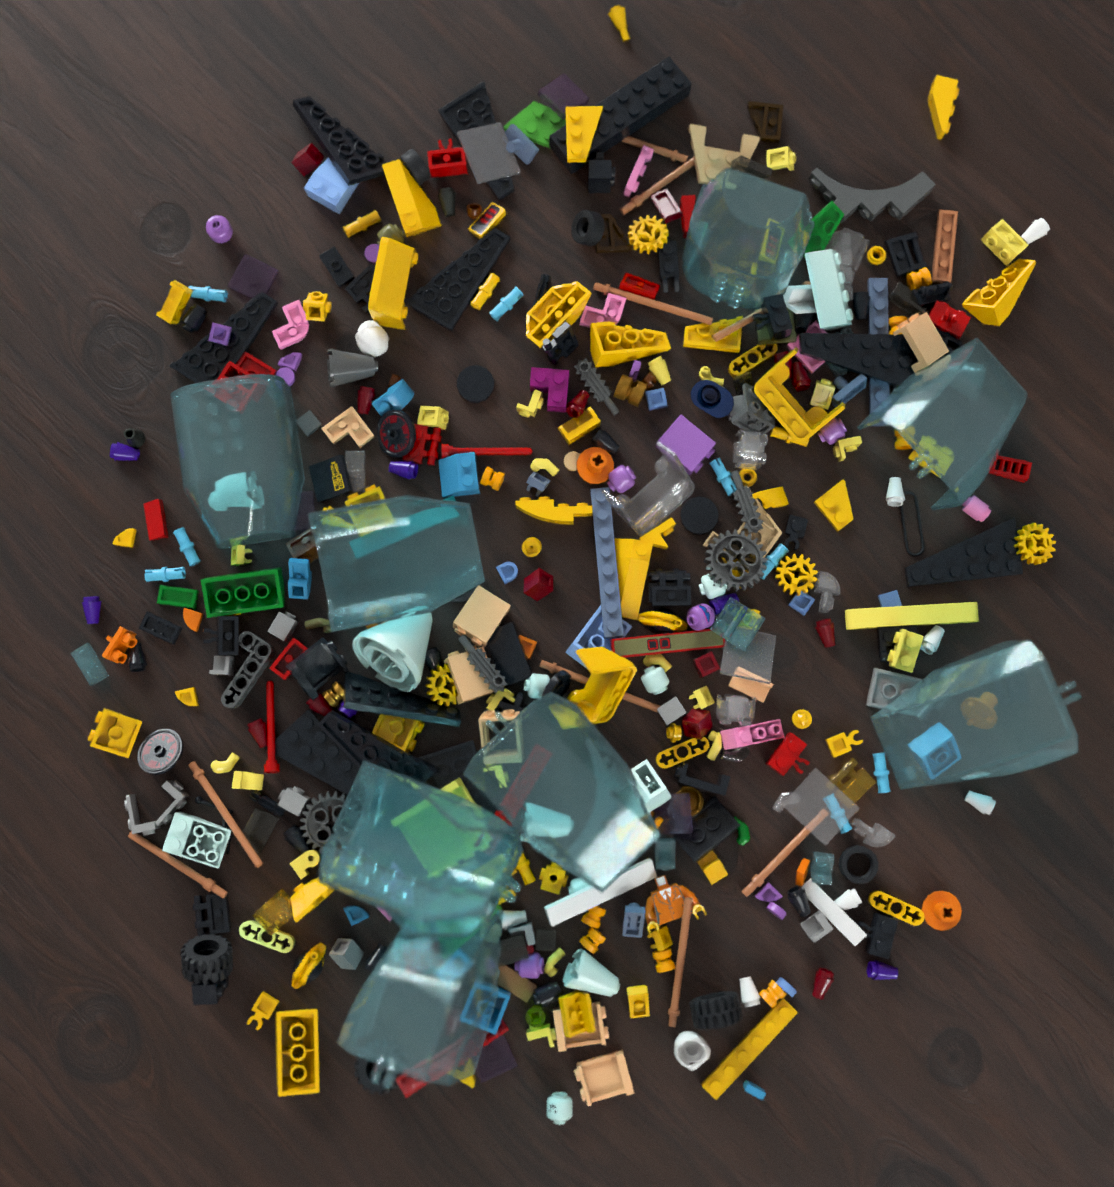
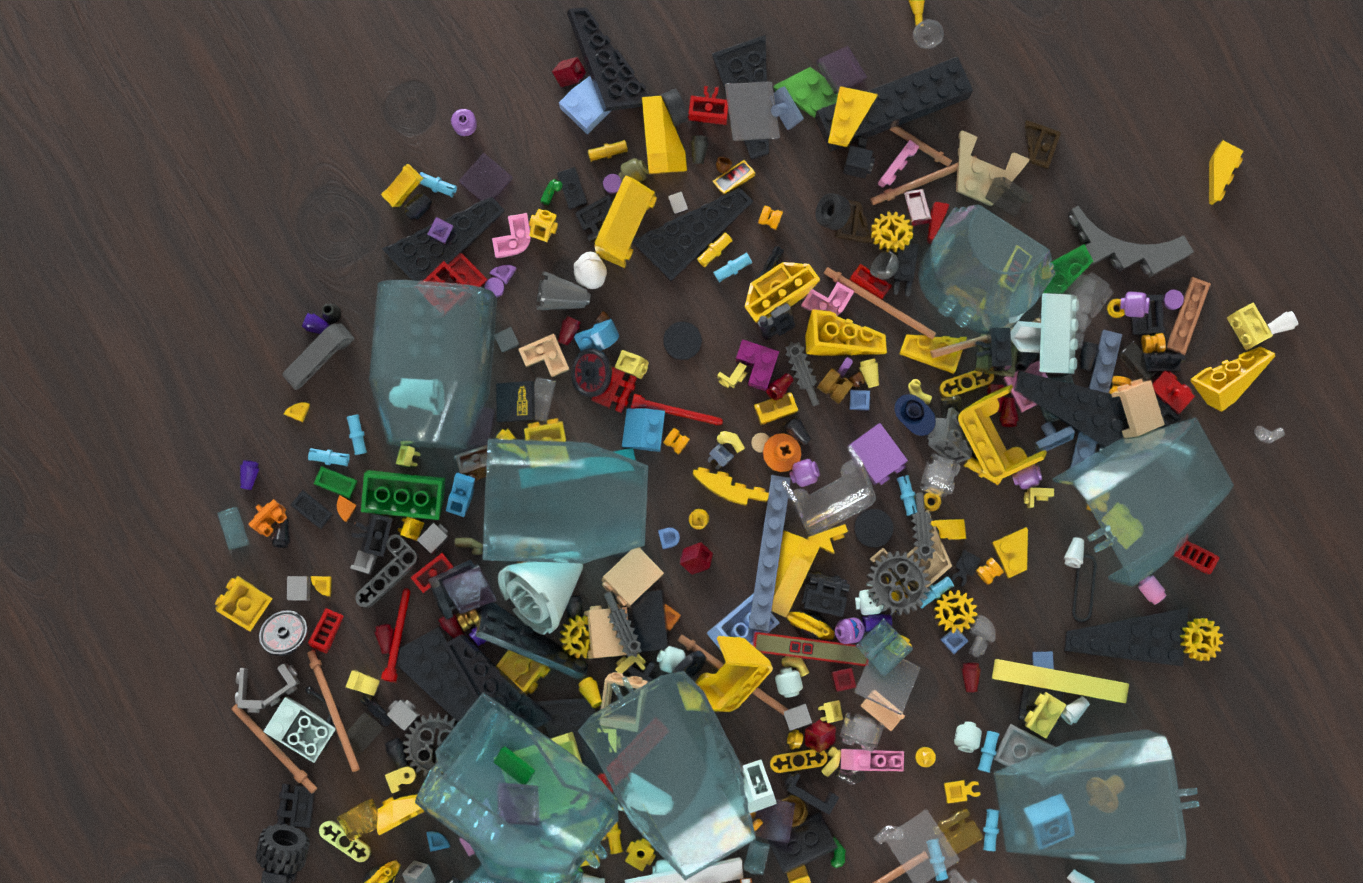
camera: 10 degrees right, 0 degrees up
(130, 478) = (316, 354): none -> dark grey beam
(155, 519) = (332, 400): red slope -> none
(165, 705) = (298, 588): none -> light grey panel
(204, 756) = (332, 633): none -> red slope
(225, 766) = (343, 663): light yellow arm -> none
(259, 622) = (411, 528): none -> yellow tile
(318, 268) = (553, 186): none -> green arm
(328, 666) = (469, 590): none -> tile
(405, 469) = (590, 409): dark purple cone -> none
(411, 823) = (514, 766): none -> green tile
(422, 858) = (518, 803): none -> tile
(440, 257) = (678, 202): none -> white sticker
(467, 734) = (589, 689): none -> yellow cone
(534, 247) = (774, 219): none -> light orange wheel
(636, 43) = (928, 34): none -> clear hair
(649, 267) = (884, 265): none -> dark grey hair
(781, 158) = (1045, 186): light yellow bracket -> none
(786, 754) = (902, 788): red brick -> none
(819, 528) = (989, 571): none -> light orange wheel
(822, 393) = (1027, 435): light yellow bracket -> none
(837, 690) = (967, 737): none -> light aqua head
(860, 698) = (988, 751): none -> medium azure pin
(893, 245) = (1135, 304): none -> medium lavender head
(927, 234) = (1173, 299): none -> medium lavender tile
(1048, 339) = (1268, 436): none -> clear arm

